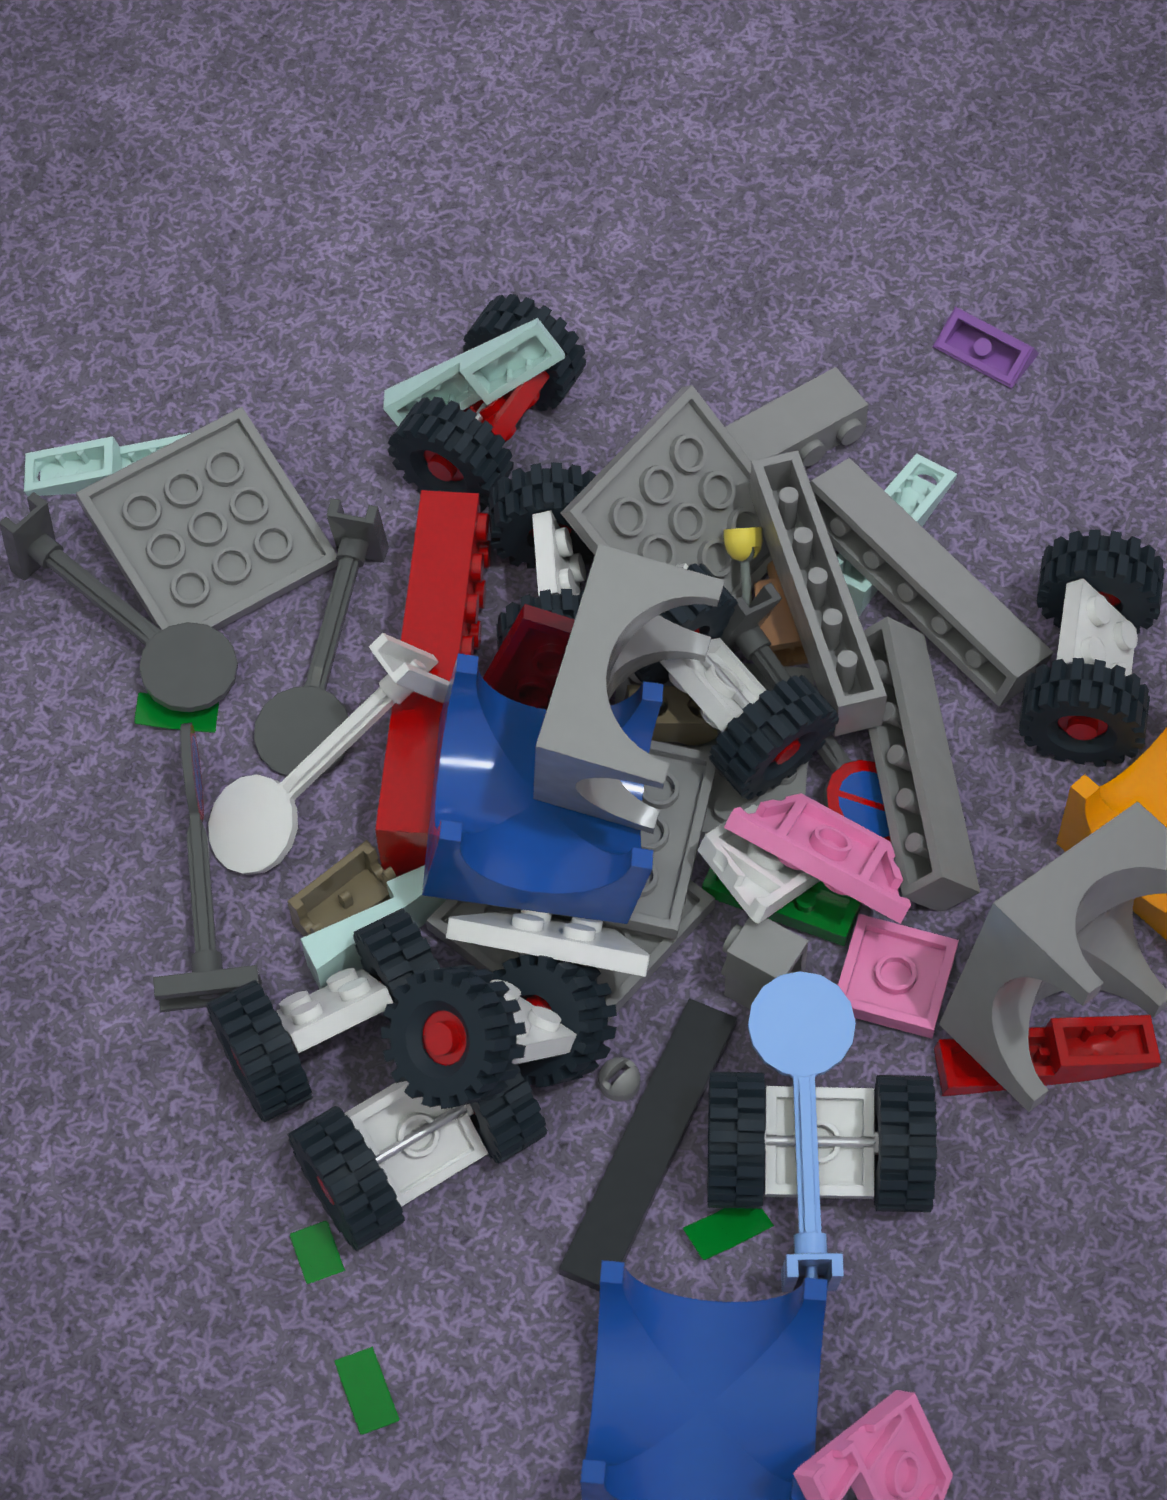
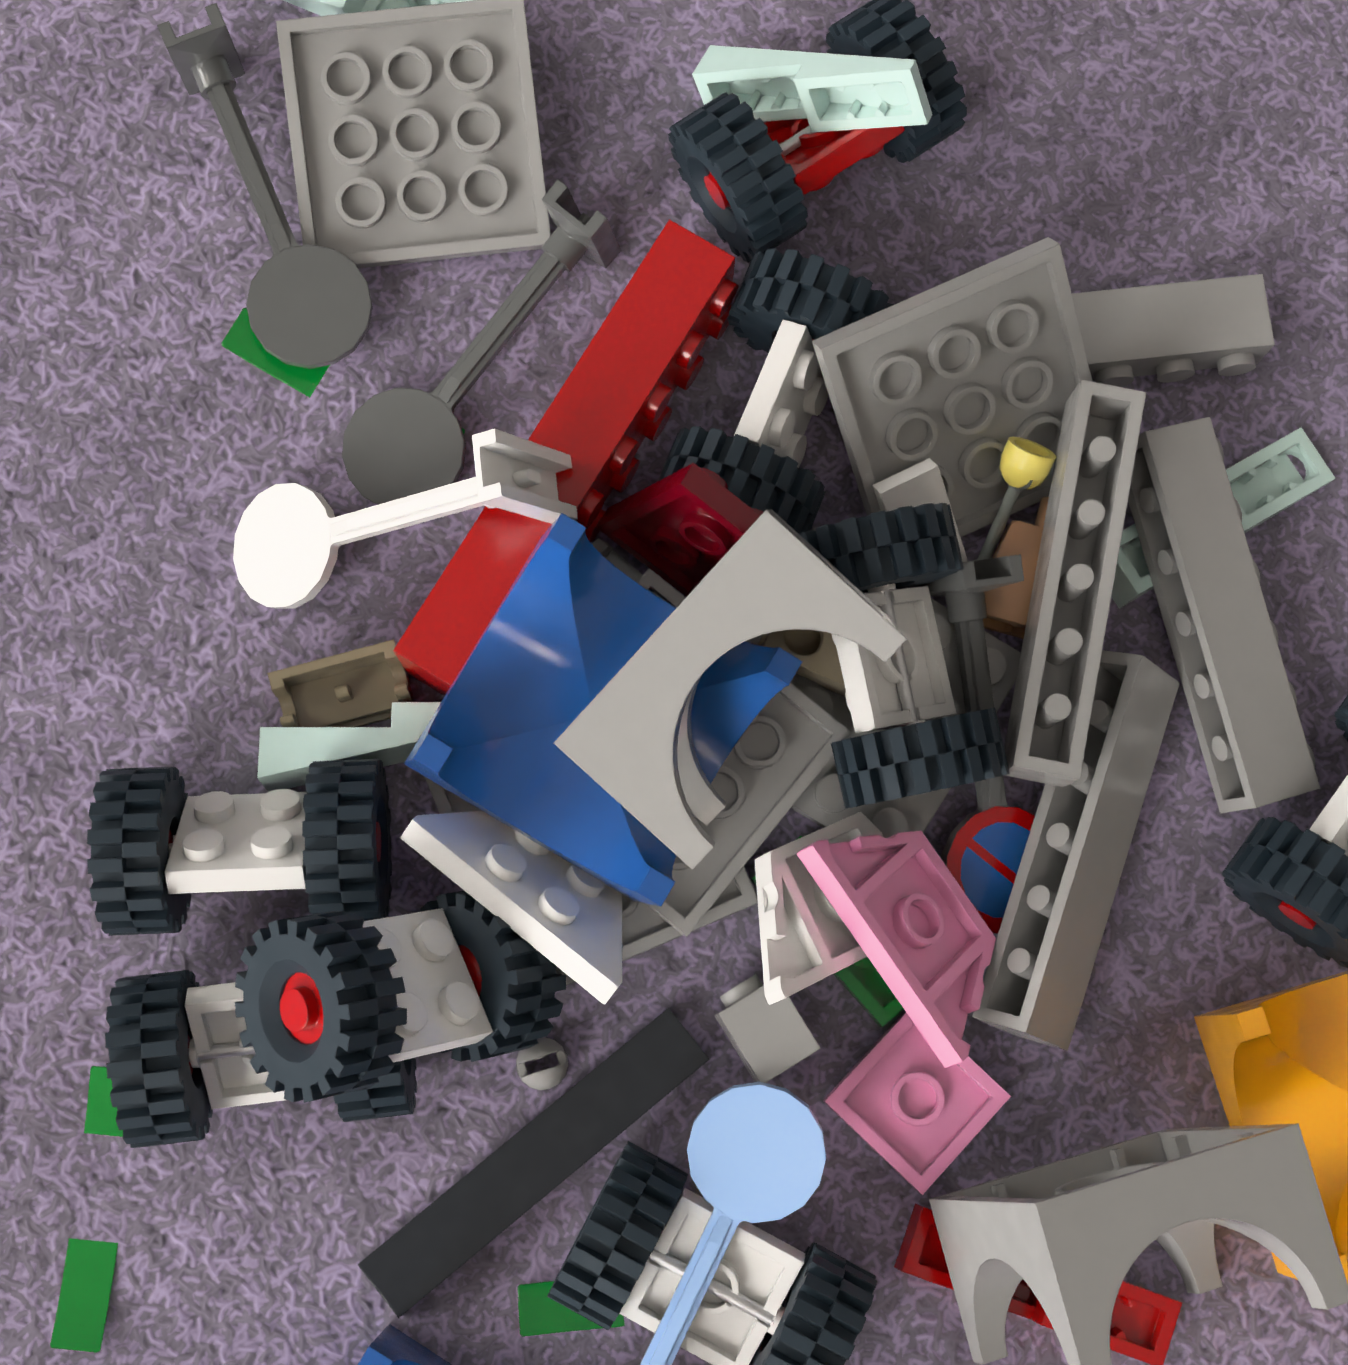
camera: 20 degrees right, 20 degrees up
(207, 976) = (232, 478): dark grey piece -> none

